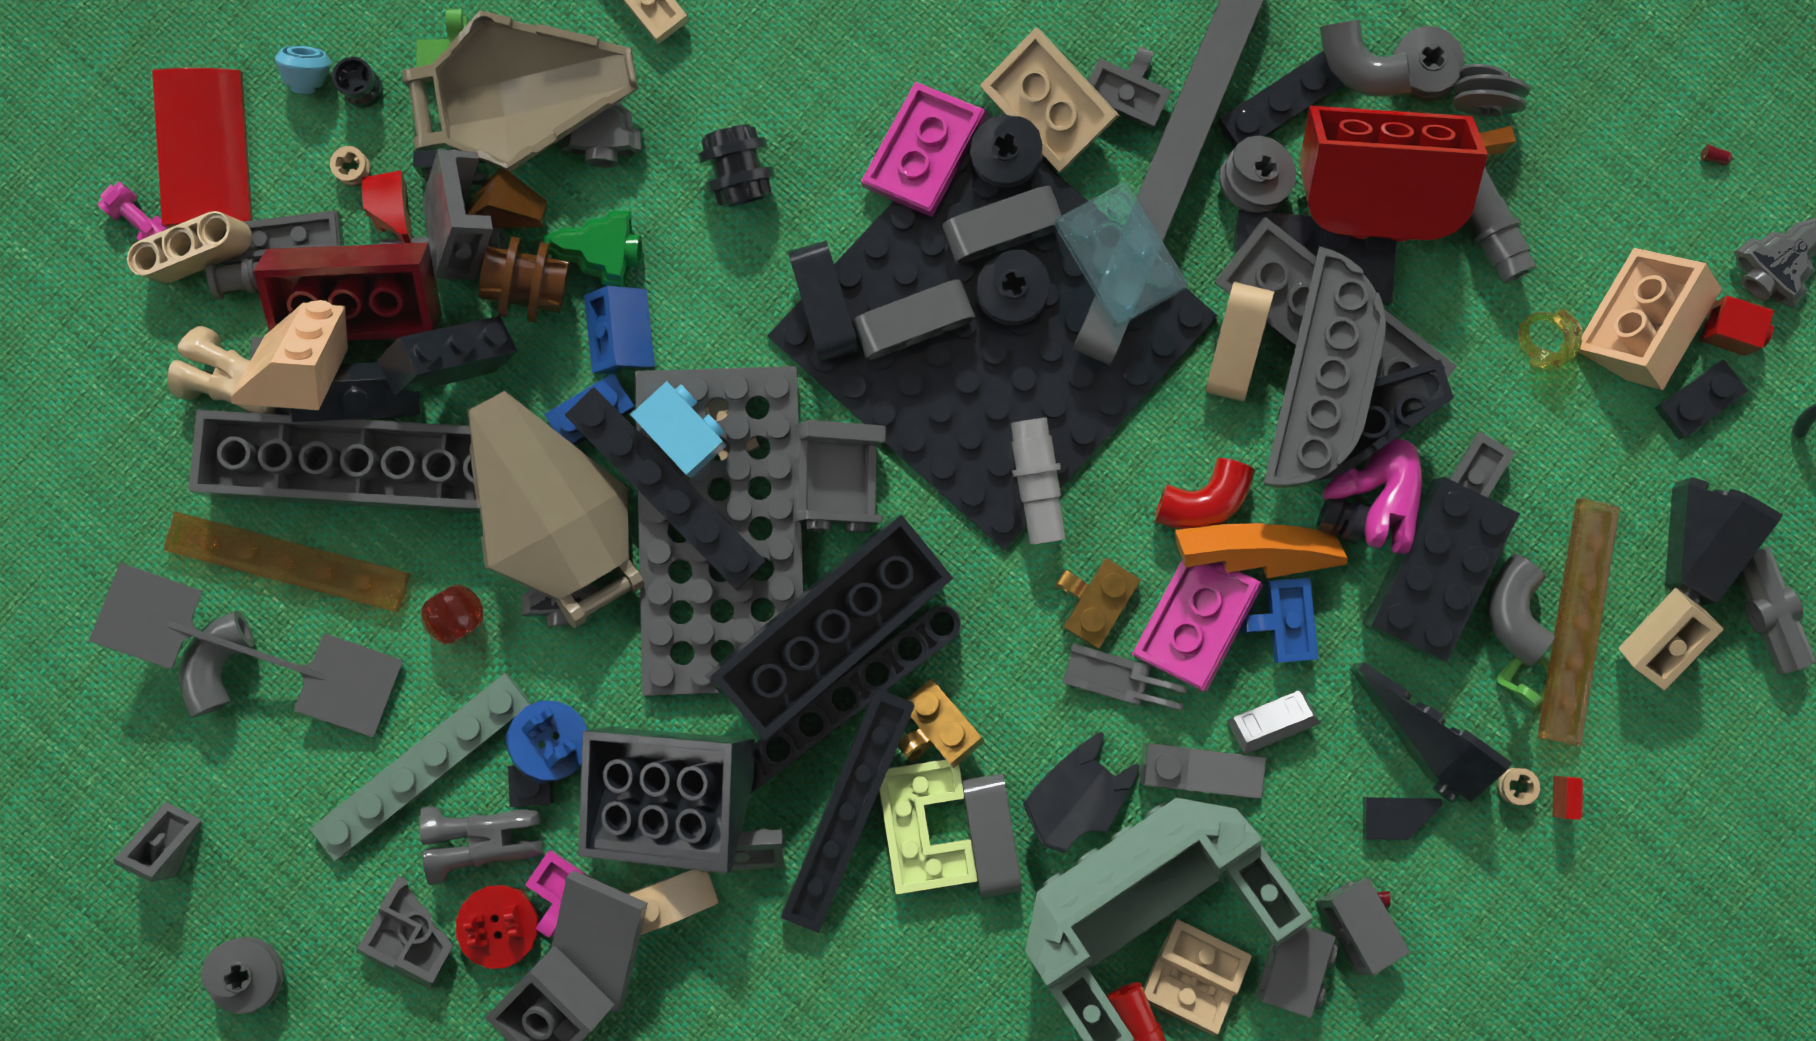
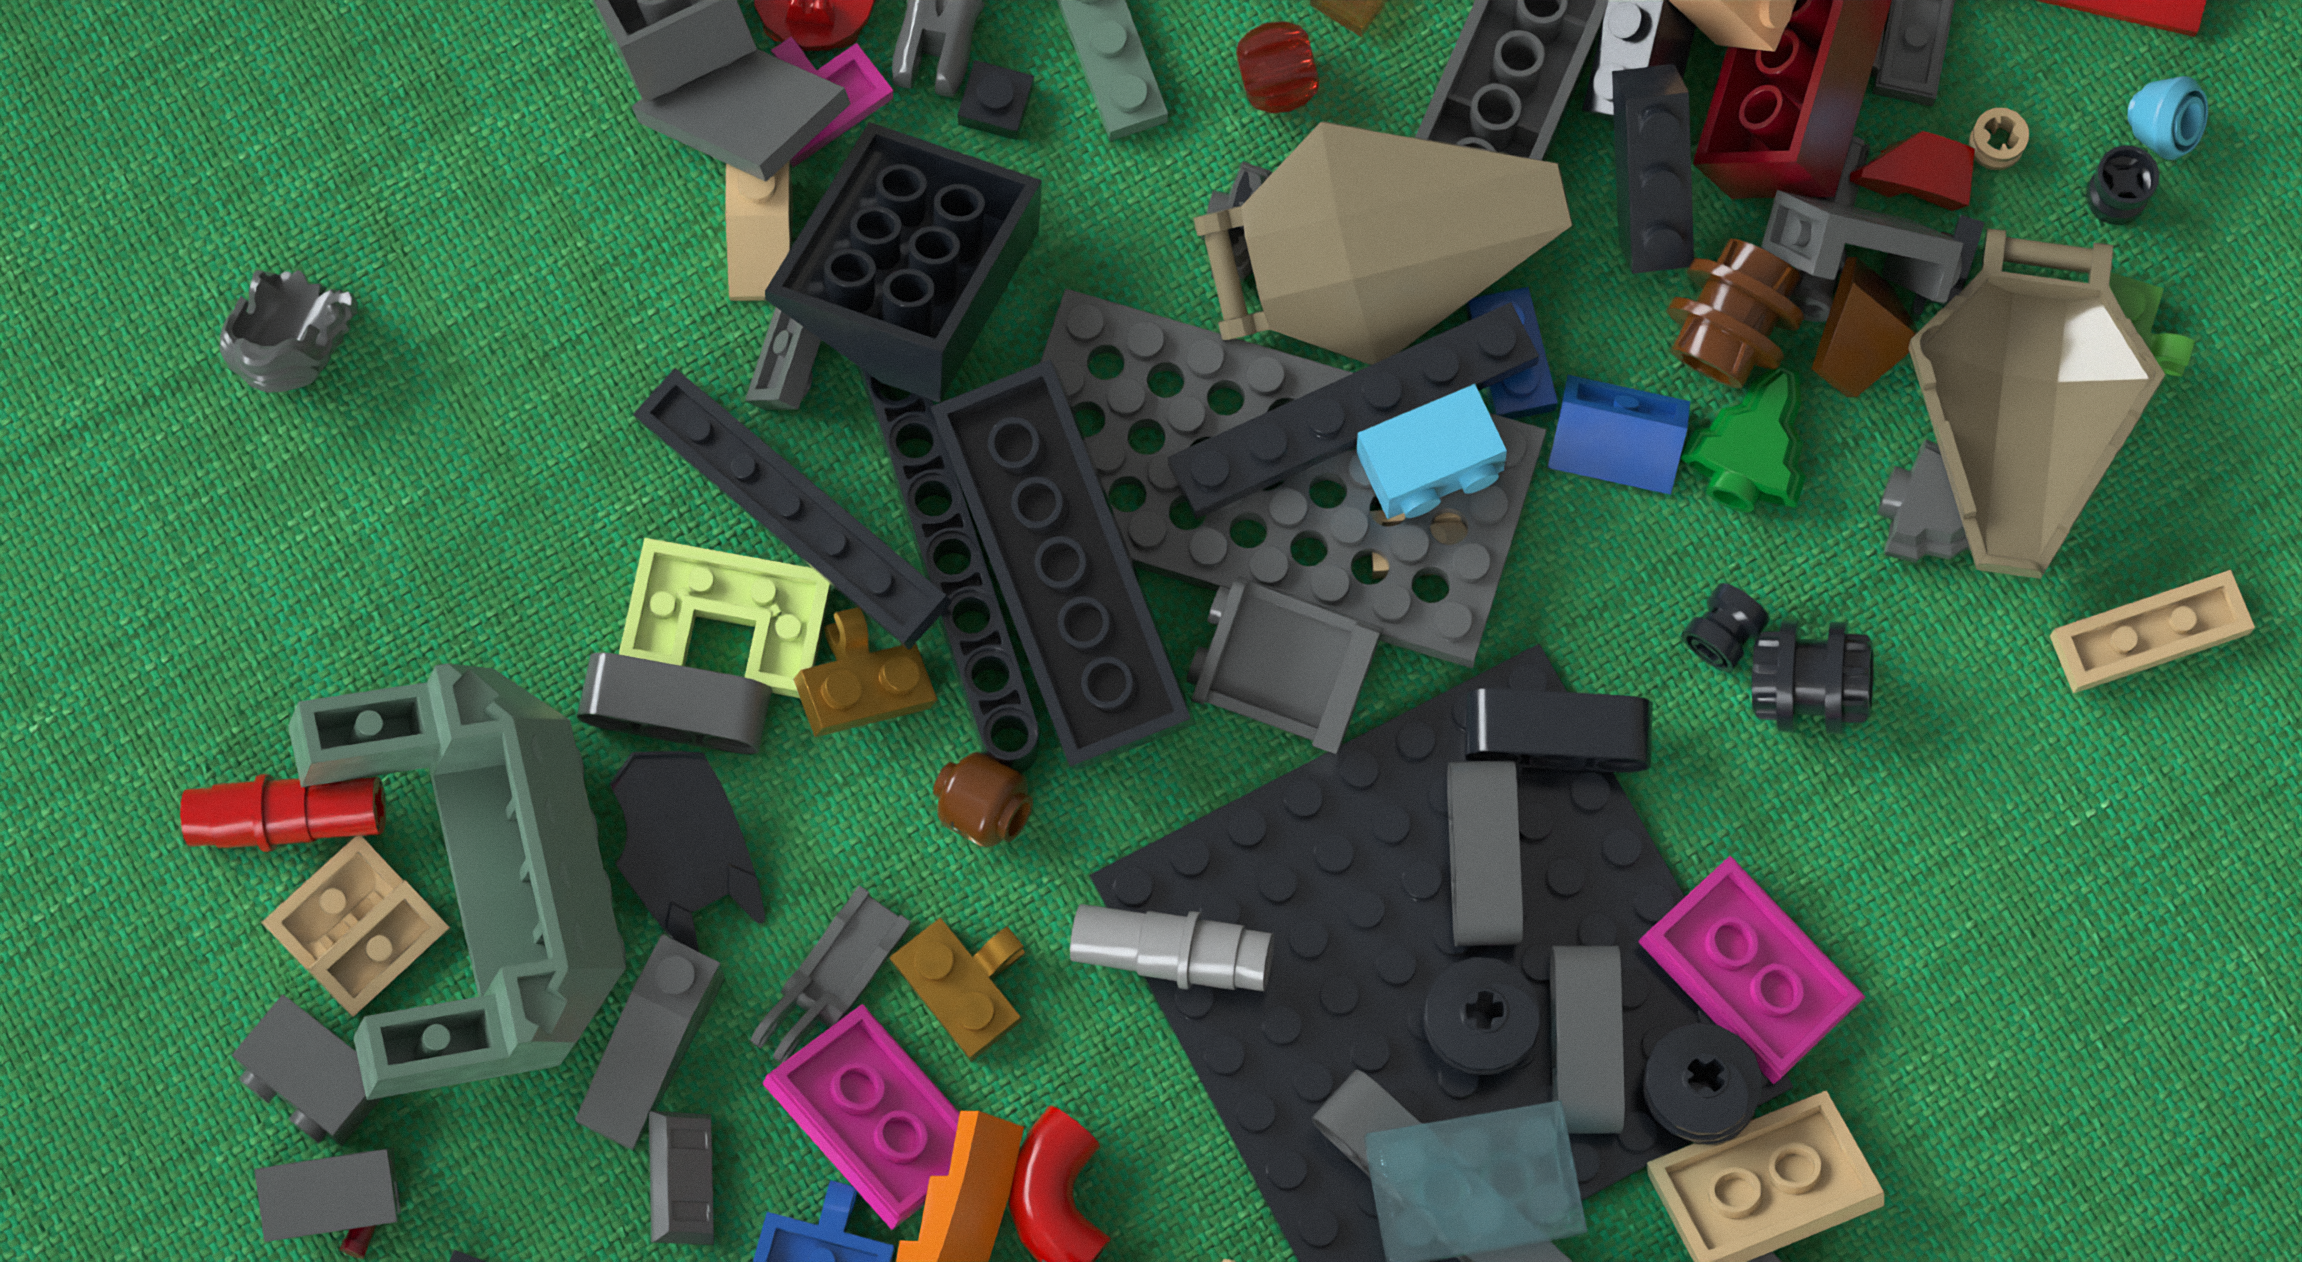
camera: 105 degrees right, 10 degrees down
(536, 725) = (1076, 130): blue plate -> none
(721, 228) = (1726, 628): none -> black wheel
(985, 627) = (982, 800): none -> reddish brown head

